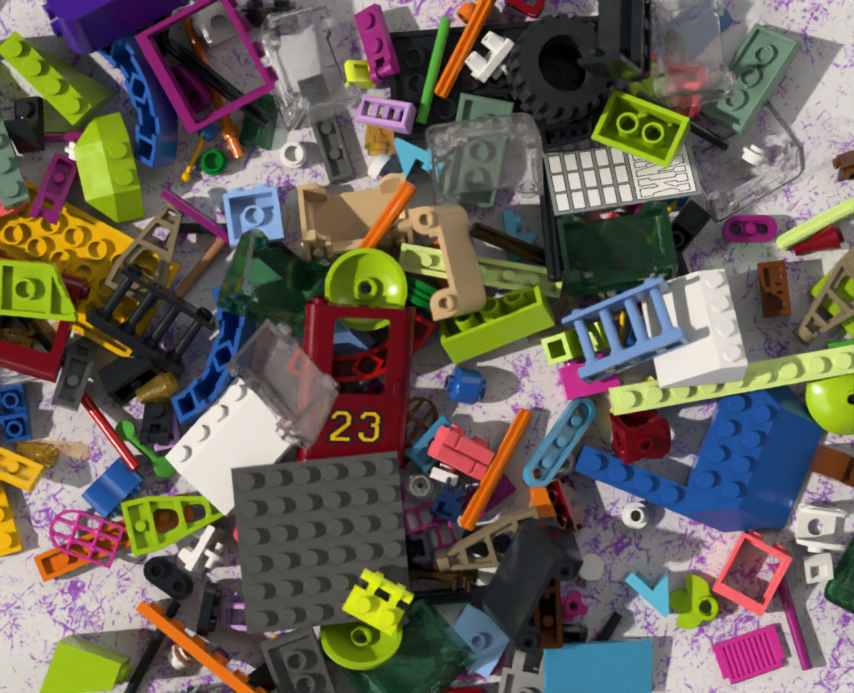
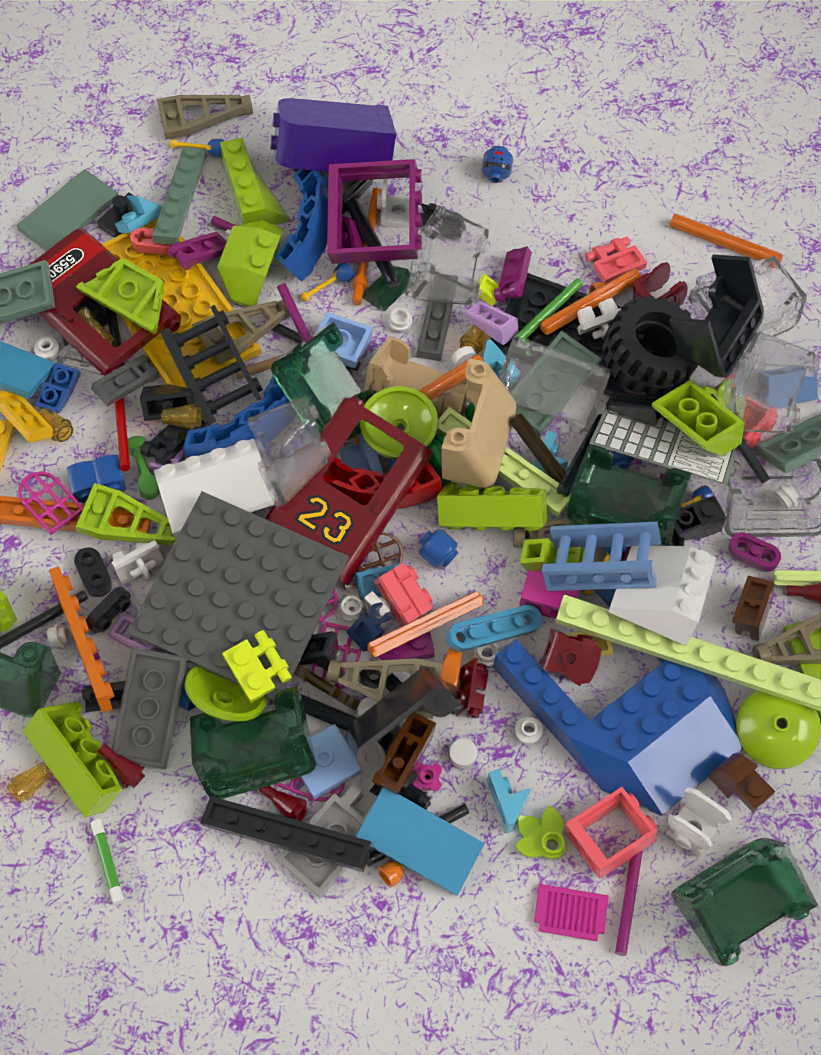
camera: 25 degrees right, 25 degrees down
(28, 125) = (207, 204): black slope -> none
(213, 162) = (333, 295): green plate -> none
(818, 568) = (677, 863): white plate -> none

